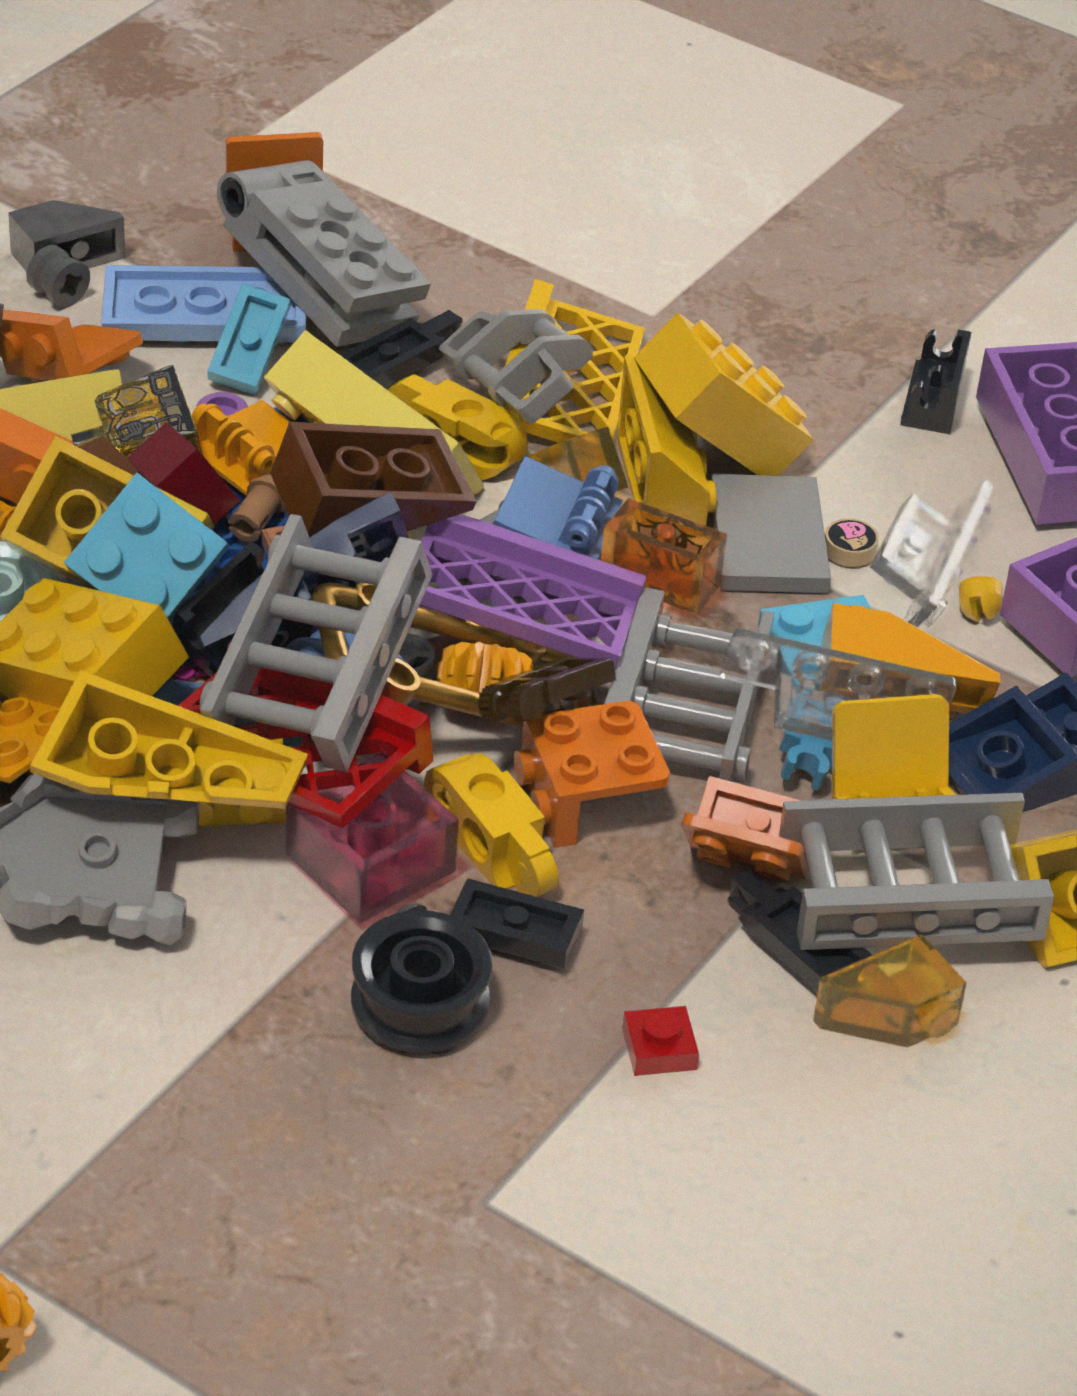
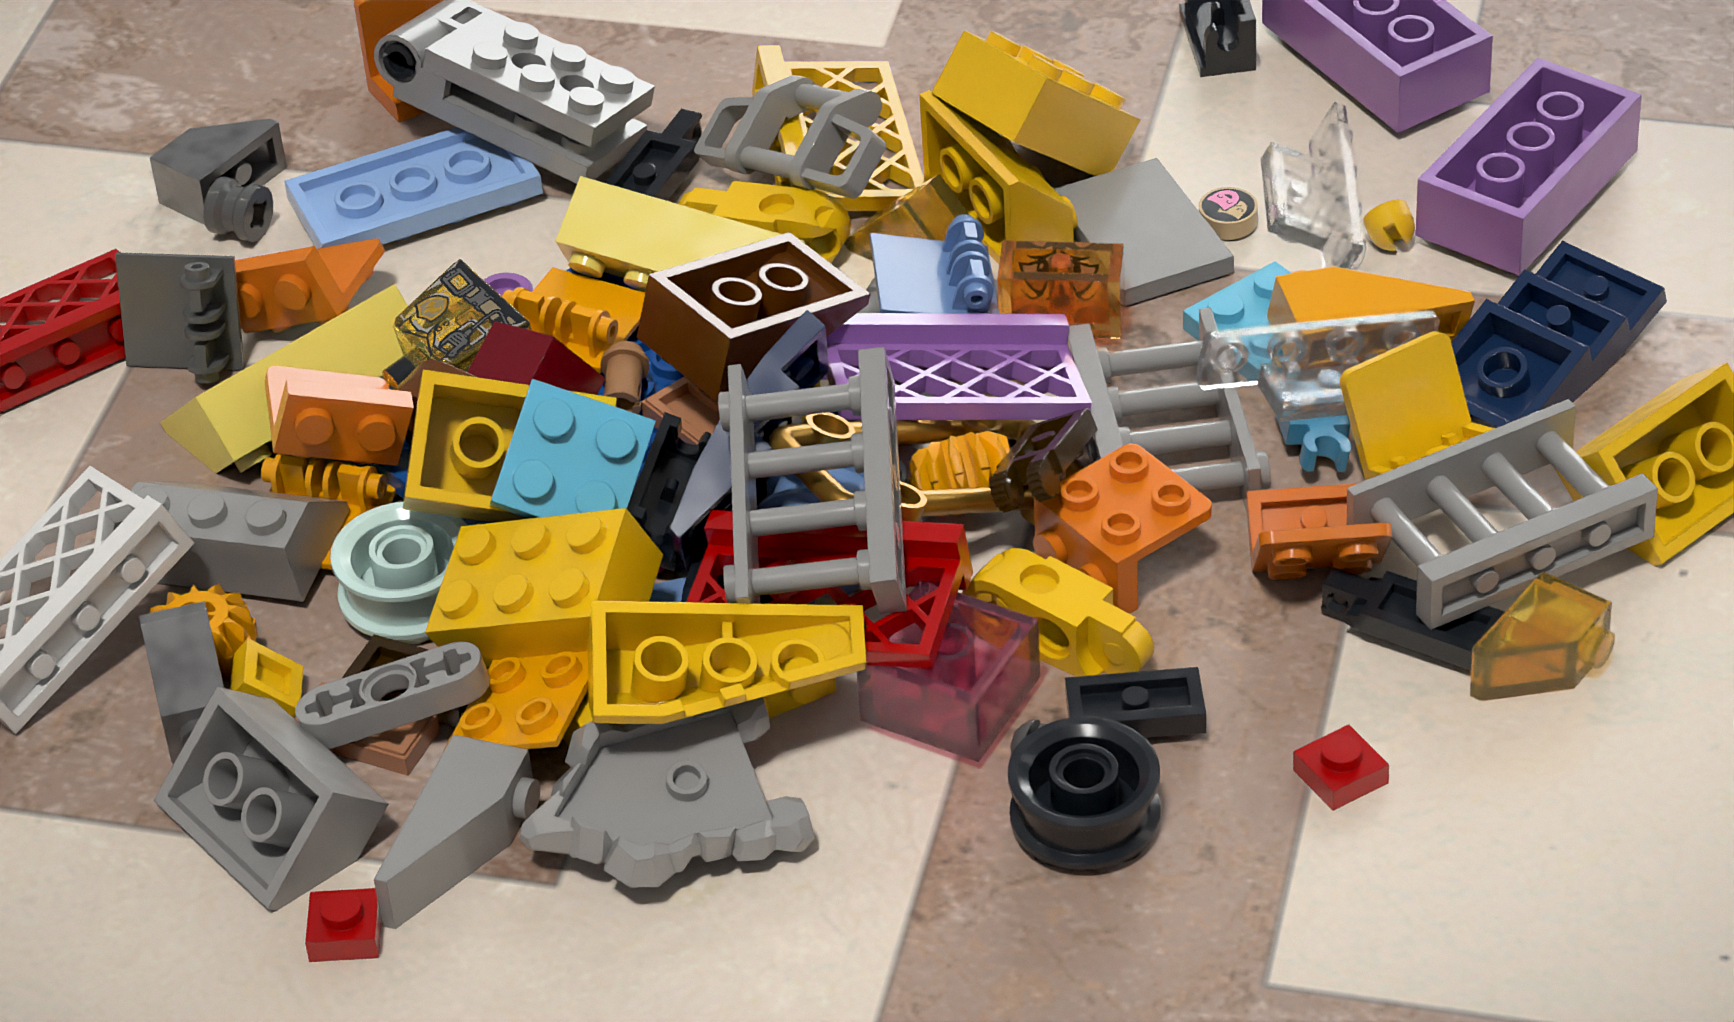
camera: 15 degrees left, 0 degrees up
(248, 339) = (492, 208): medium azure plate -> none

